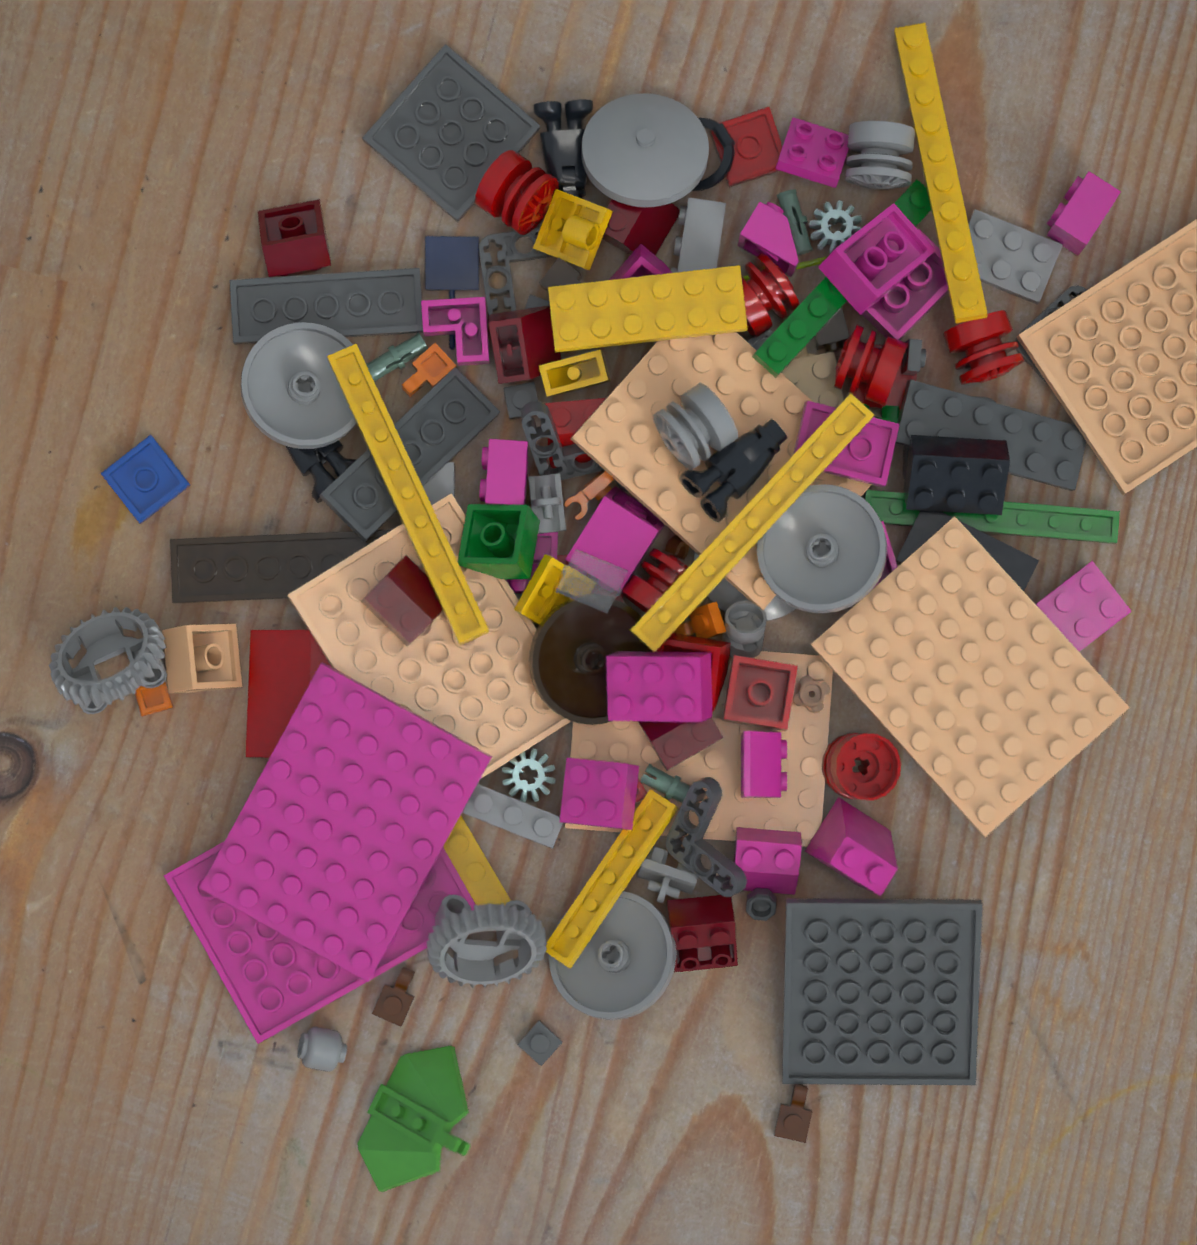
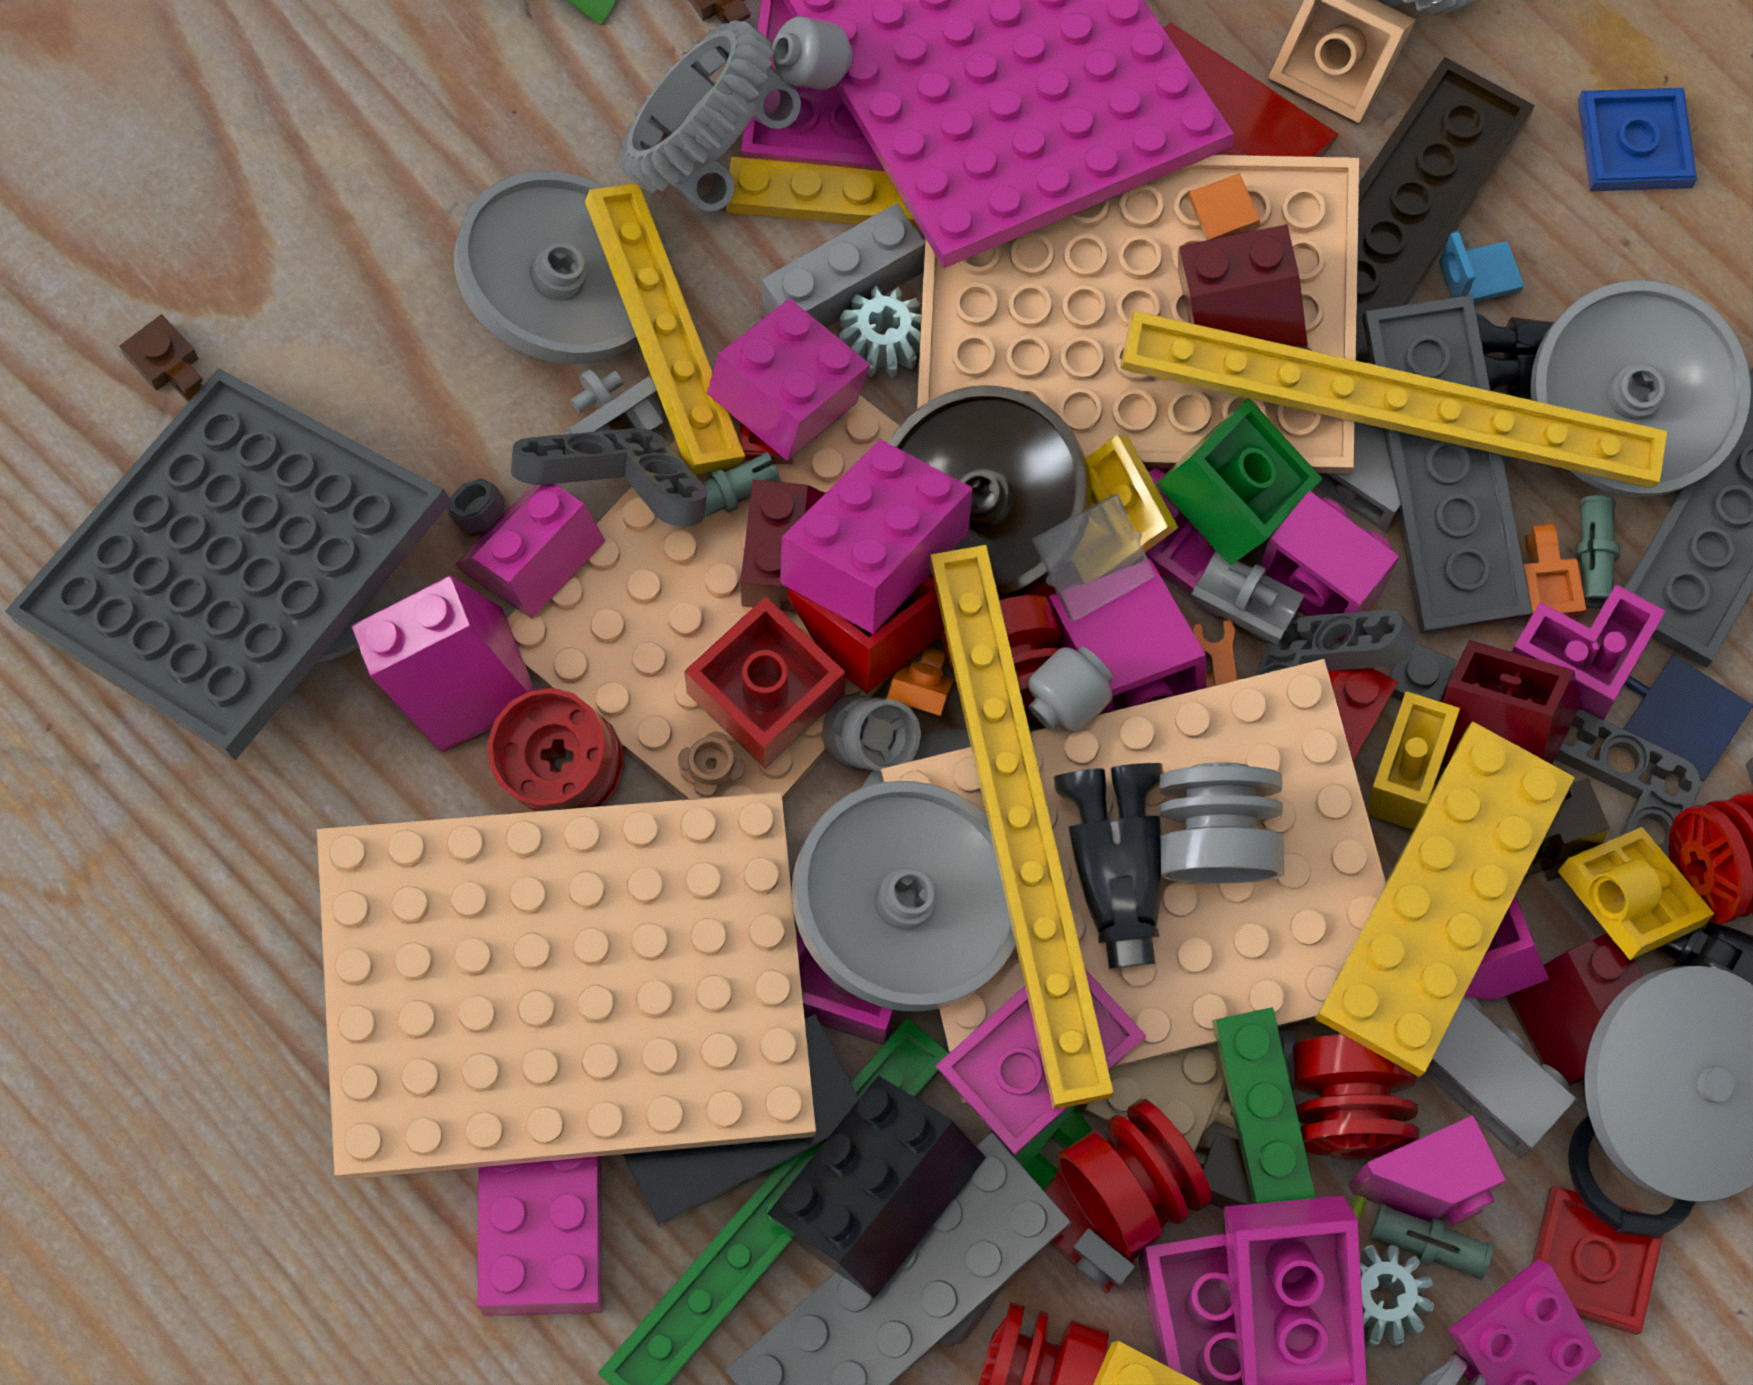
camera: 125 degrees right, 15 degrees down
(282, 507) = (1481, 271): none -> dark azure bracket
(363, 642) = (1224, 208): none -> orange tile
(422, 904) = (811, 53): none -> light grey head
(540, 1043) = (521, 121): dark grey plate -> none
(672, 543) = (1070, 689): none -> light grey head
(703, 932) = (498, 400): dark red slope -> none
(762, 764) = (661, 610): dark pink slope -> none

